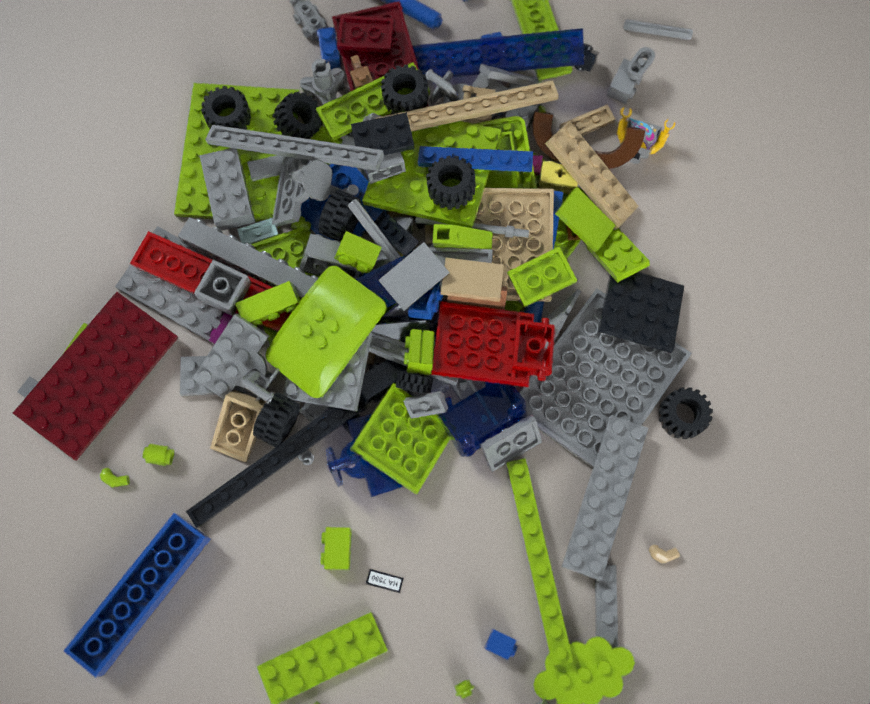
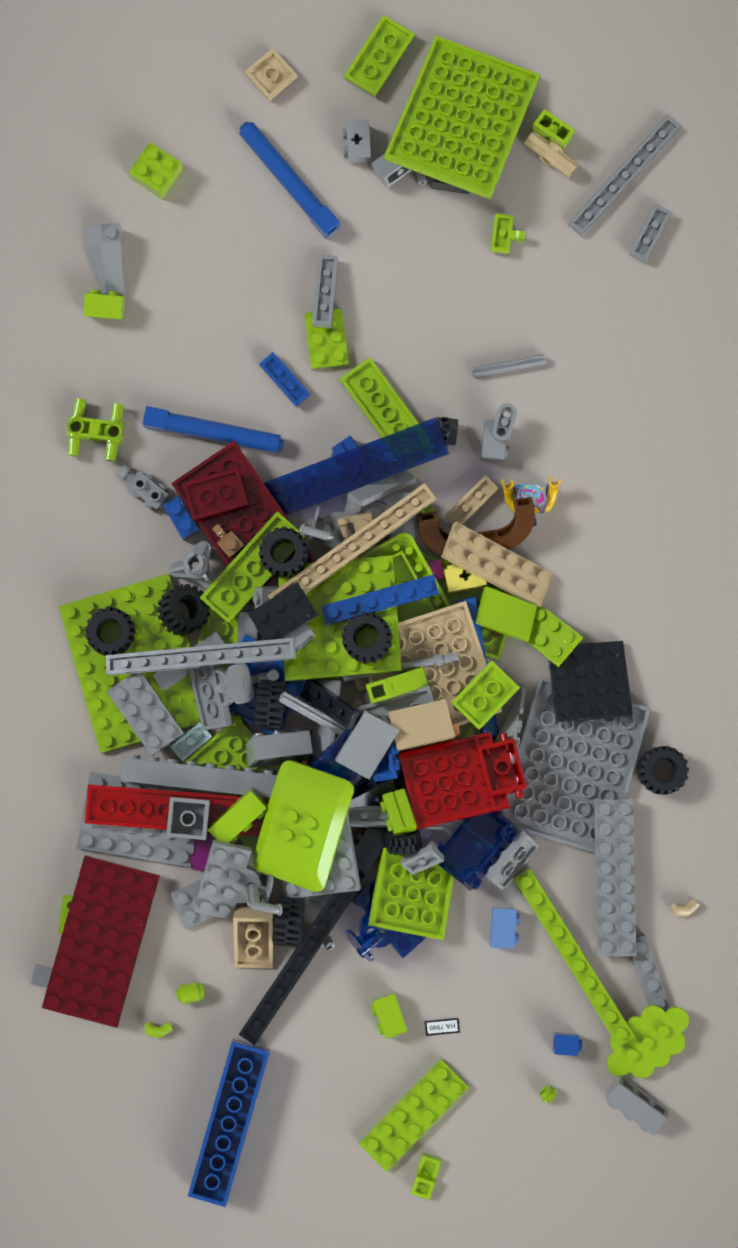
camera: 20 degrees left, 10 degrees up
(357, 253) = (304, 739): lime brick -> none
(480, 505) = (503, 927): none -> medium blue brick

